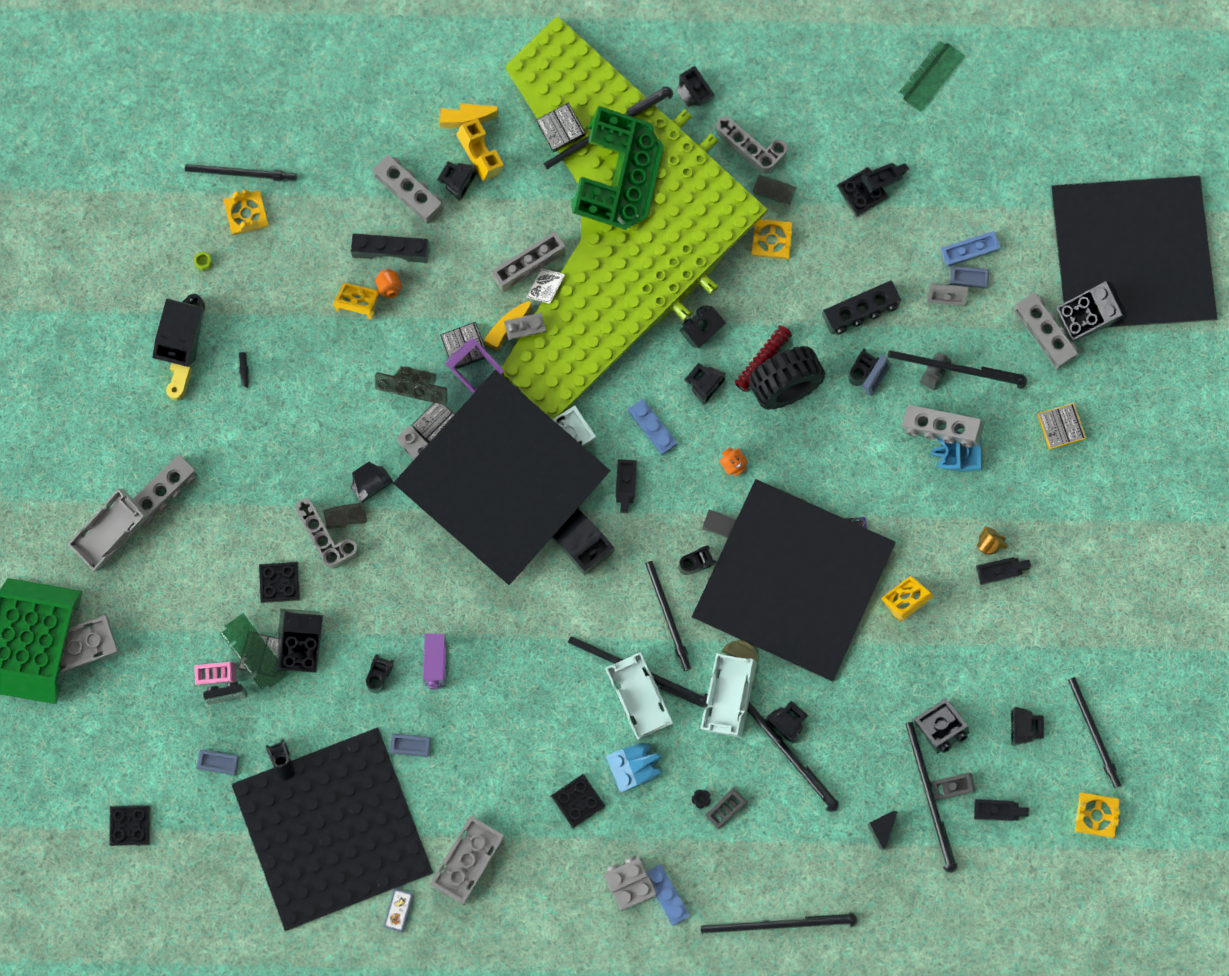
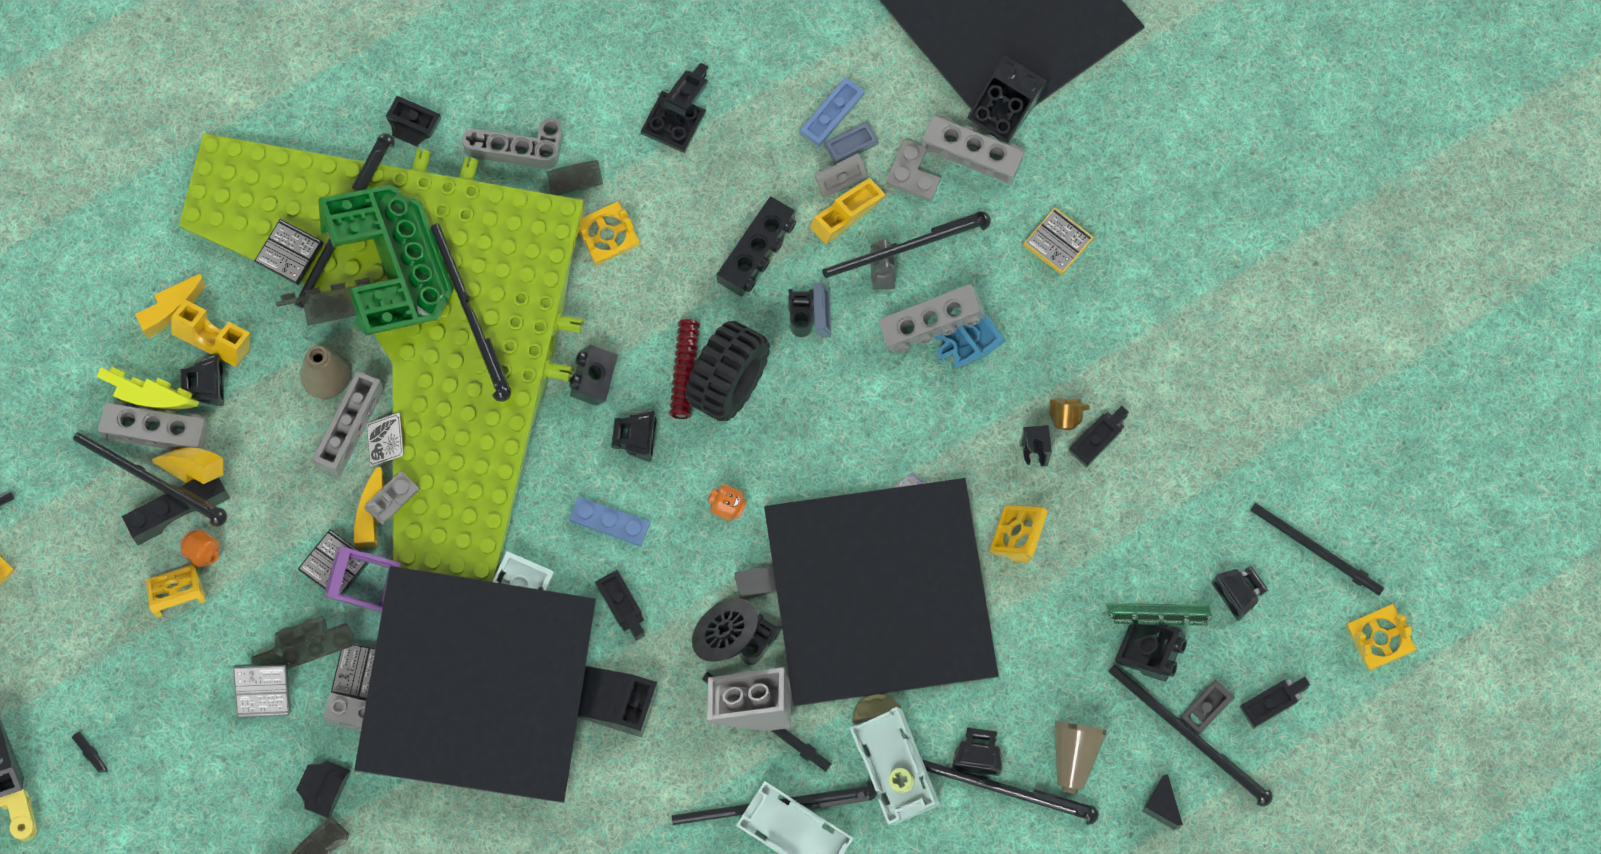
camera: 35 degrees left, 5 degrees down
(370, 397) = (261, 690): none -> tile
(409, 269) = (216, 515): none -> black bar
(415, 227) = (191, 464): none -> yellow slope
(417, 163) = (147, 393): none -> neon yellow slope
(535, 219) = (324, 373): none -> dark tan cone
(563, 176) = (325, 305): none -> clear smoke bracket
(643, 270) = (485, 345): none -> black bar
(665, 596) = (750, 700): none -> light grey slope
(666, 542) = (719, 627): none -> black piece
(731, 711) = (893, 776): none -> yellowish green bush
(848, 761) = (1076, 753): none -> dark tan cone
(936, 320) = (846, 210): none -> yellow slope
(956, 547) = (1037, 441): none -> black hinge
(956, 703) = (1151, 613): none -> clear green windscreen
(991, 321) = (906, 173): none -> light grey plate

